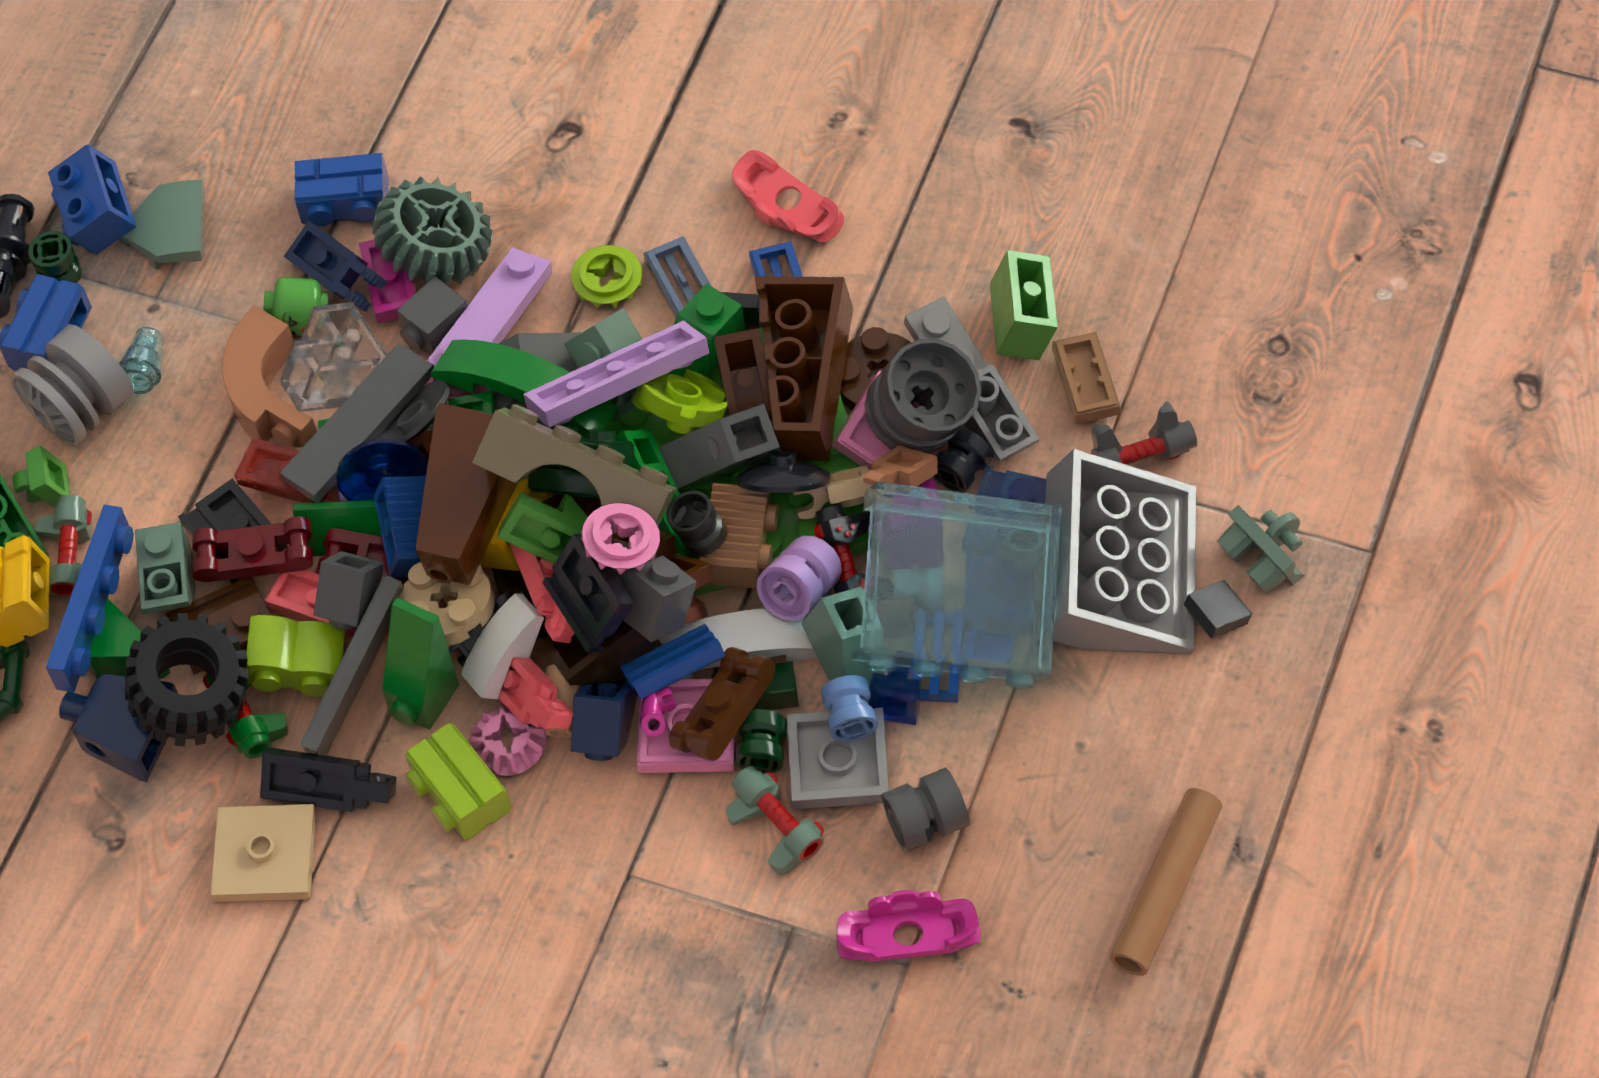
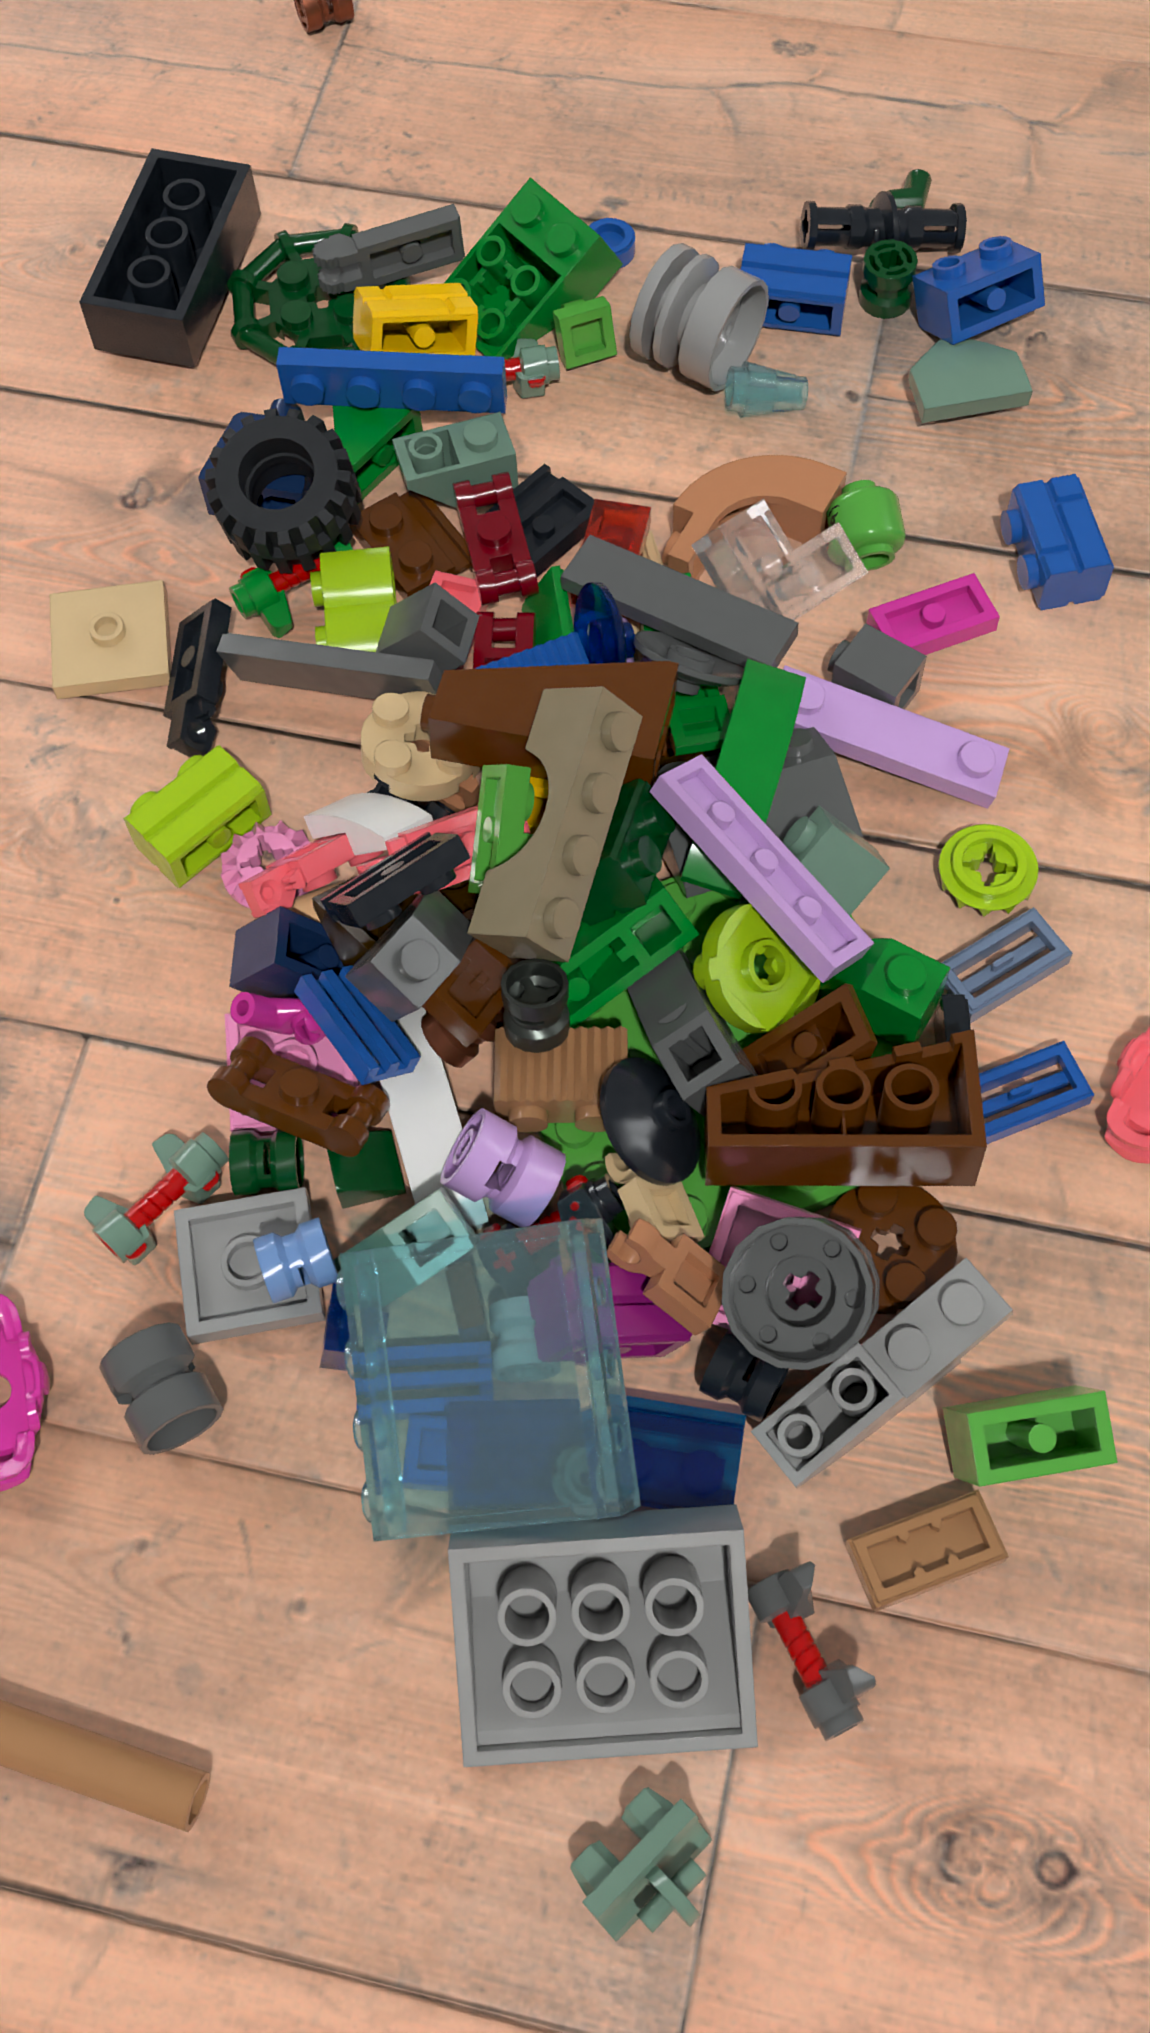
camera: 80 degrees right, 5 degrees up
(332, 264) = (928, 553): dark blue hinge -> none
(417, 666) = (325, 741): green slope -> none
(432, 231) = (1042, 660): sand green gear -> none
(625, 521) = (452, 859): bright pink gear -> none
(1217, 609) = (531, 1799): tile -> none

